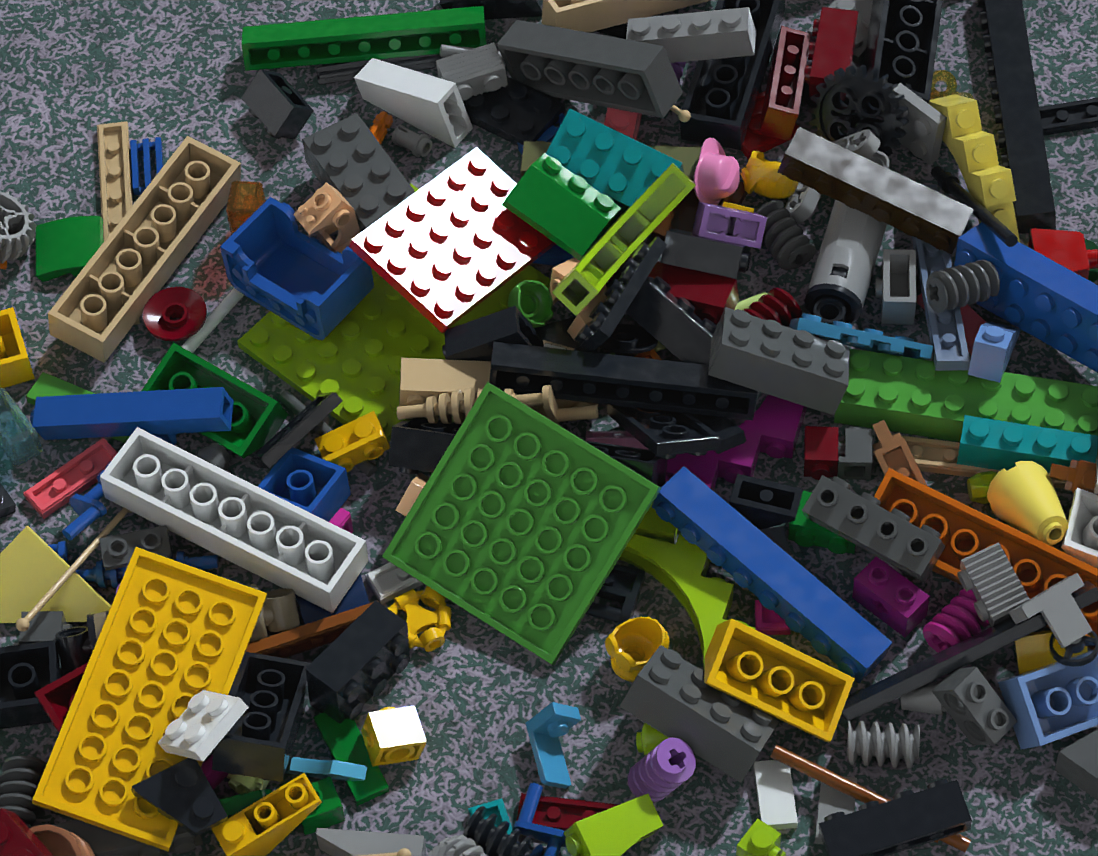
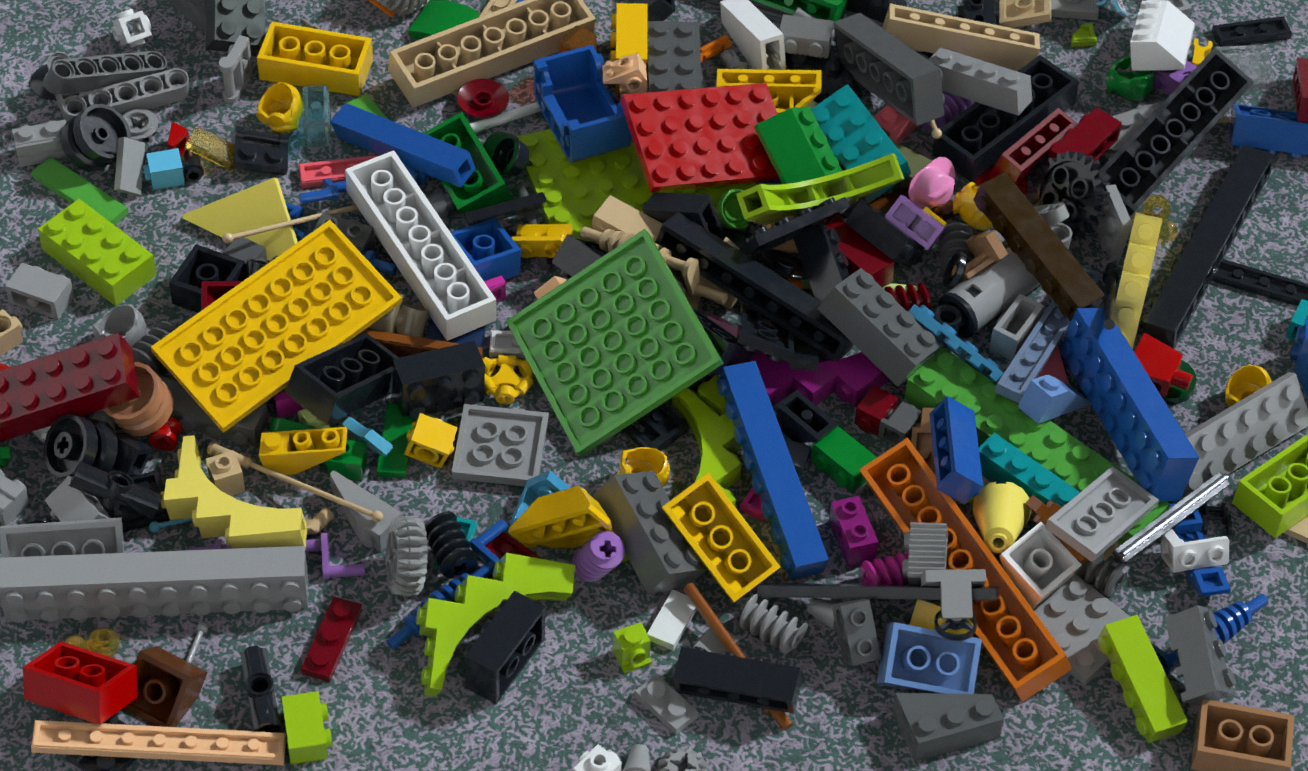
camera: 25 degrees right, 5 degrees down
(184, 796) = (253, 398): black wing -> none
(202, 725) = (294, 355): white plate -> none
(247, 362) = (507, 153): none -> piece
(290, 166) = (630, 32): none -> yellow brick
(466, 699) = (499, 445): none -> light grey plate
(499, 137) = (786, 87): none -> yellow wedge
(601, 749) = (561, 520): none -> yellow wedge
(821, 221) = (986, 250): none -> medium nougat piece
(874, 528) = (866, 473): dark grey brick -> none
(945, 455) = (956, 450): none -> blue brick
(962, 285) = (1055, 340): dark grey piece -> none

